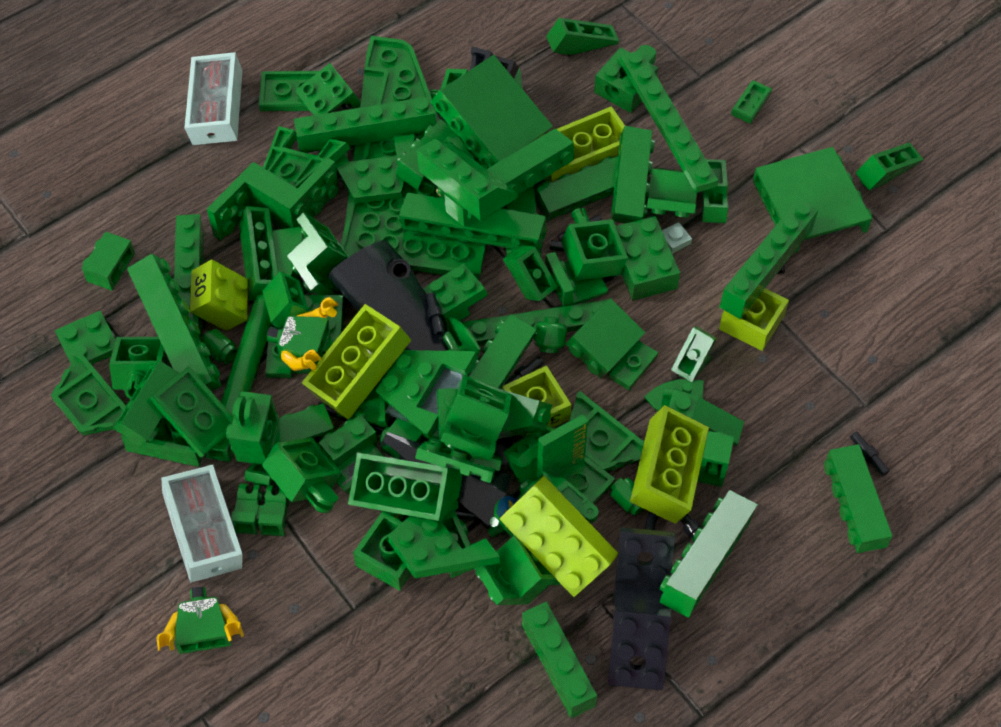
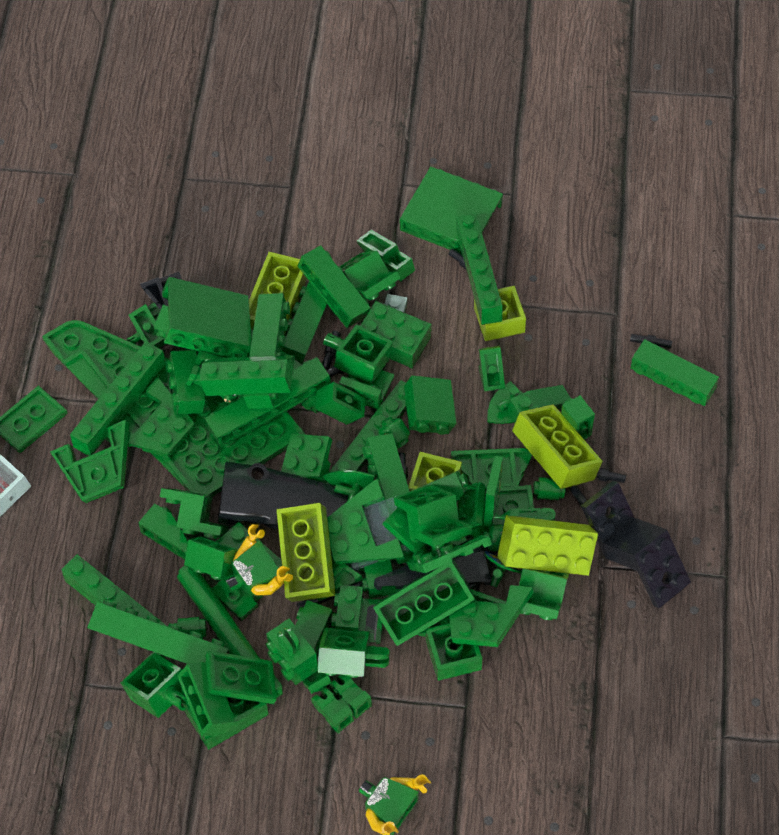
camera: 45 degrees left, 0 degrees up
(87, 398) = (145, 740): green wing -> none
(89, 336) = (92, 707): green plate -> none
(108, 260) = (43, 642): green brick -> none
(201, 523) = (317, 744): brick -> none
(219, 295) = (156, 593): lime brick -> none
(257, 249) = (144, 545): green brick -> none
(263, 189) = (114, 501): green bracket -> none
(326, 92) = (59, 400): green bracket -> none
(435, 314) = (315, 480): black bar -> none
(559, 660) = (619, 619): green brick -> none
(578, 36) = (185, 222): green slope -> none
(614, 83) = (250, 224): green brick -> none
(633, 365) = (463, 408): green plate -> none
(669, 122) = (318, 230): green plate -> none
(707, 553) = (638, 477): brick -> none
(751, 101) = (344, 177): green plate -> none
(888, 165) = (472, 152): green slope -> none

